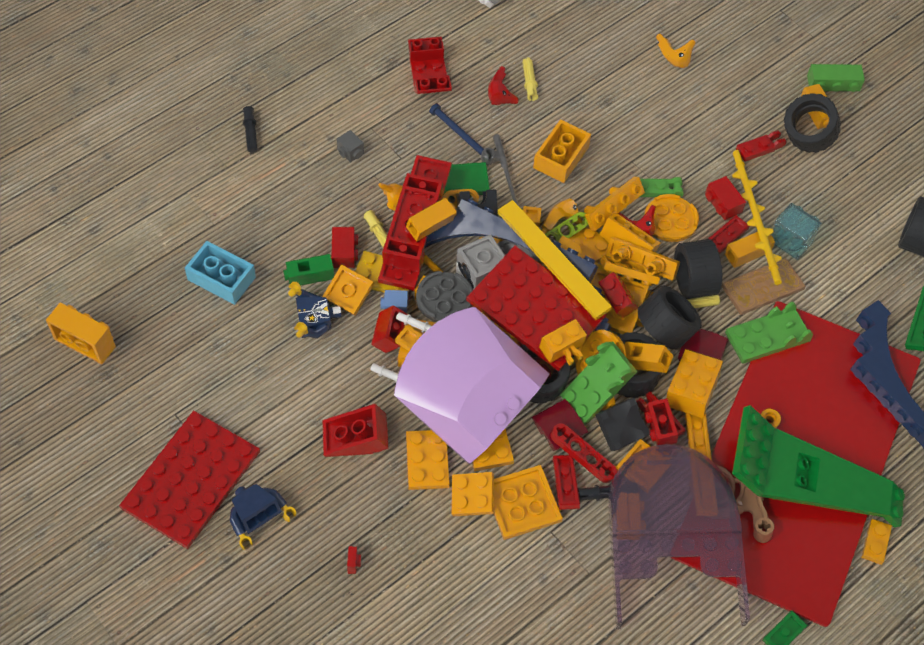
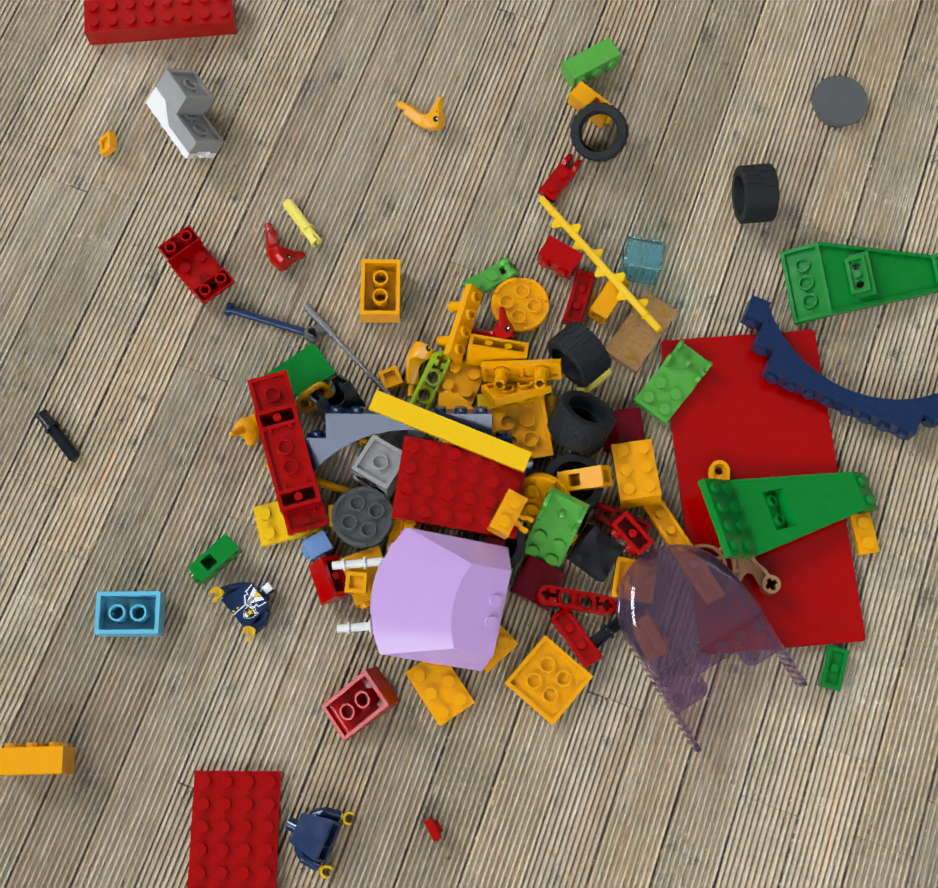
camera: 30 degrees left, 15 degrees up
(343, 247) = (232, 516): red brick -> none
(348, 290) = (265, 559): light orange plate -> none
(350, 146) = (171, 399): dark grey brick -> none
(376, 226) = (252, 475): light yellow axle -> none
(431, 219) = (310, 452): light orange brick -> none
(473, 494) = (501, 700): light orange plate -> none
(618, 294) = (523, 426): red brick -> none

